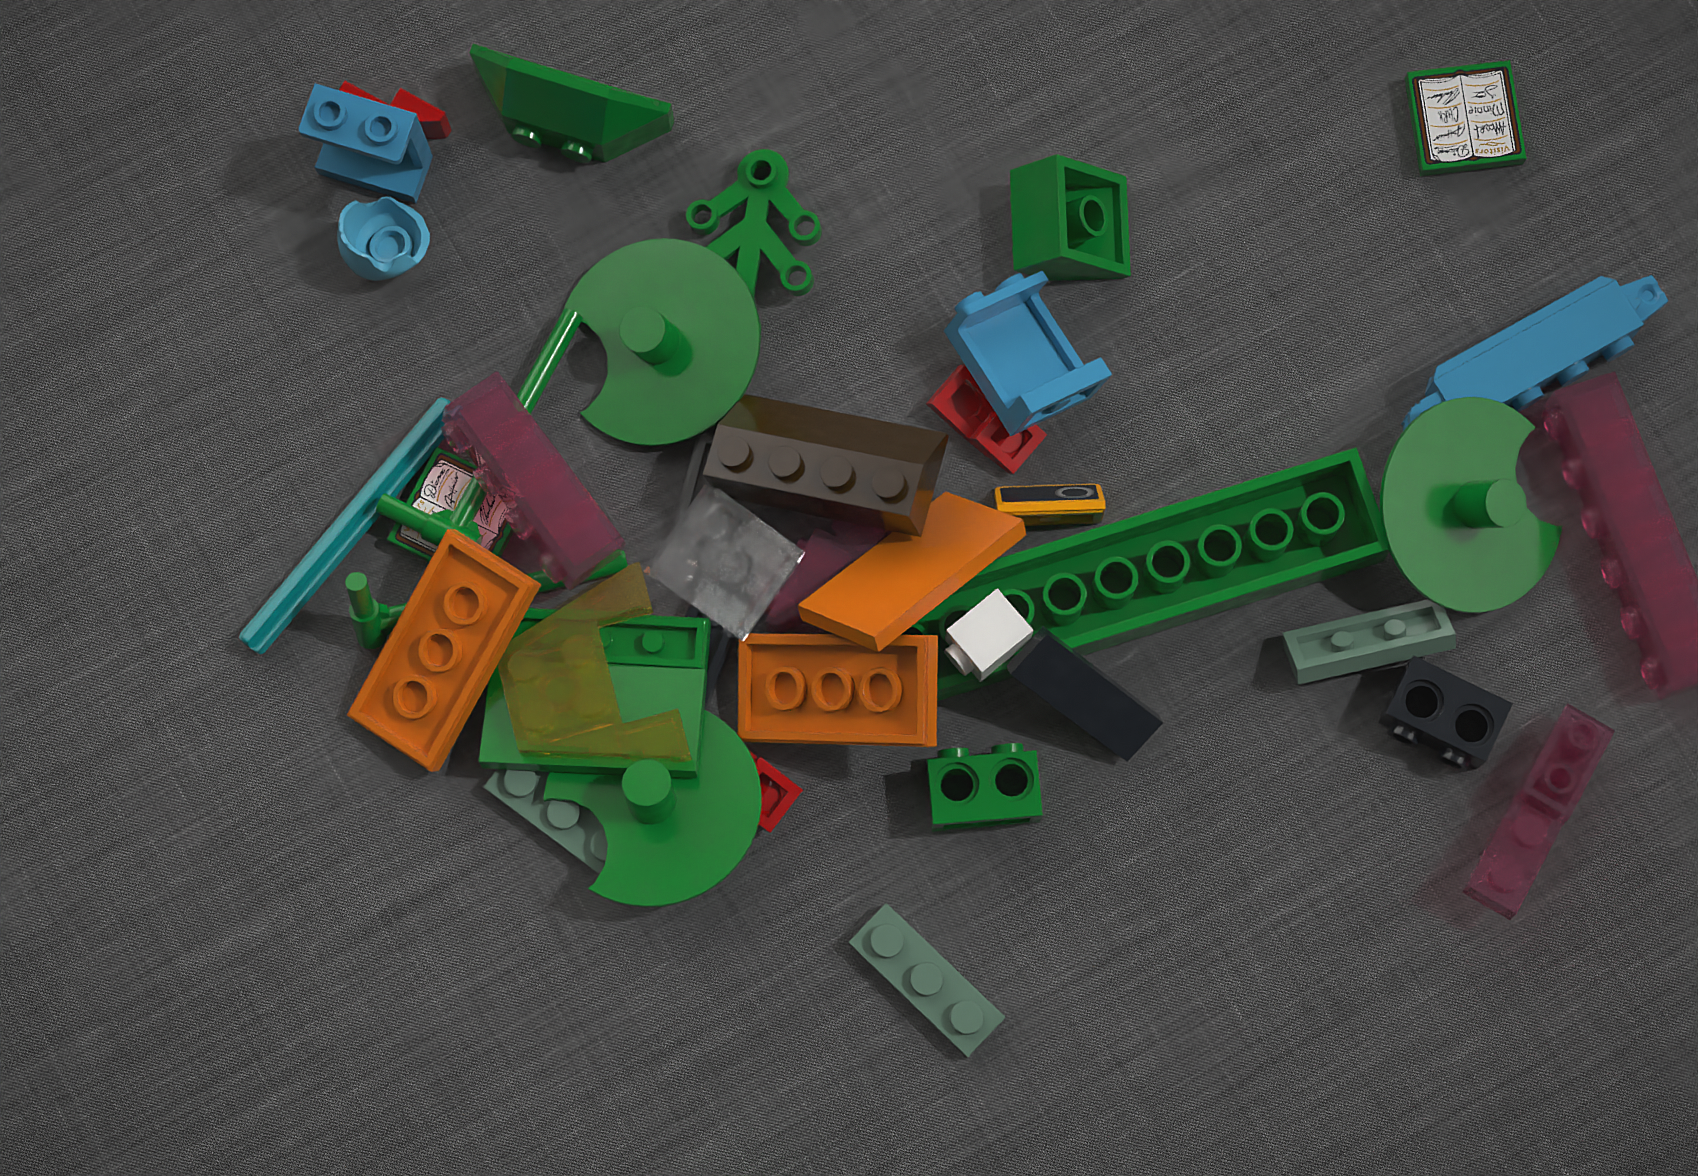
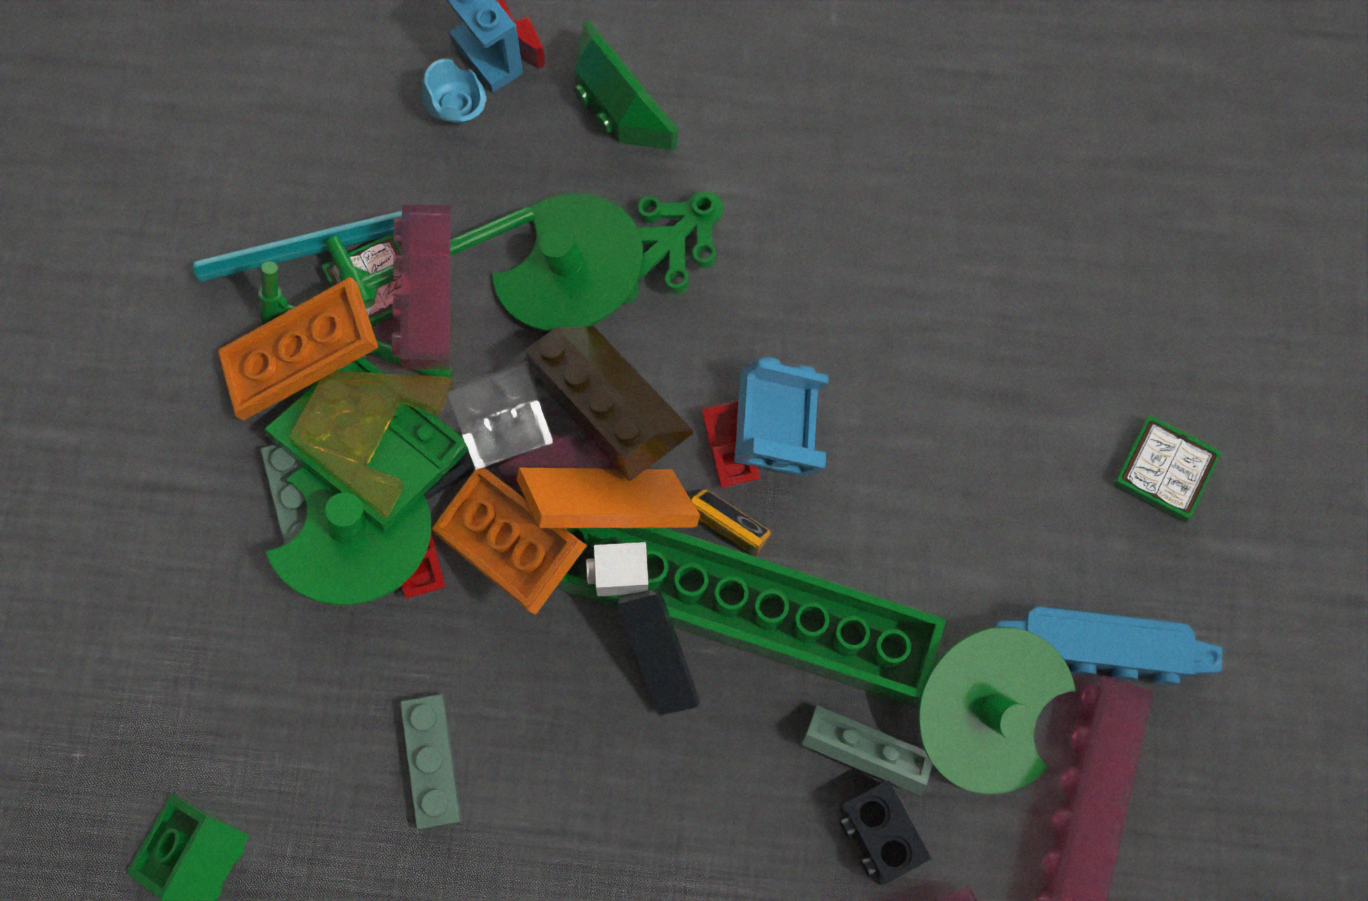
camera: 30 degrees right, 5 degrees down
(985, 804) = (549, 675): green brick -> none
(1069, 220) = (869, 360): green slope -> none

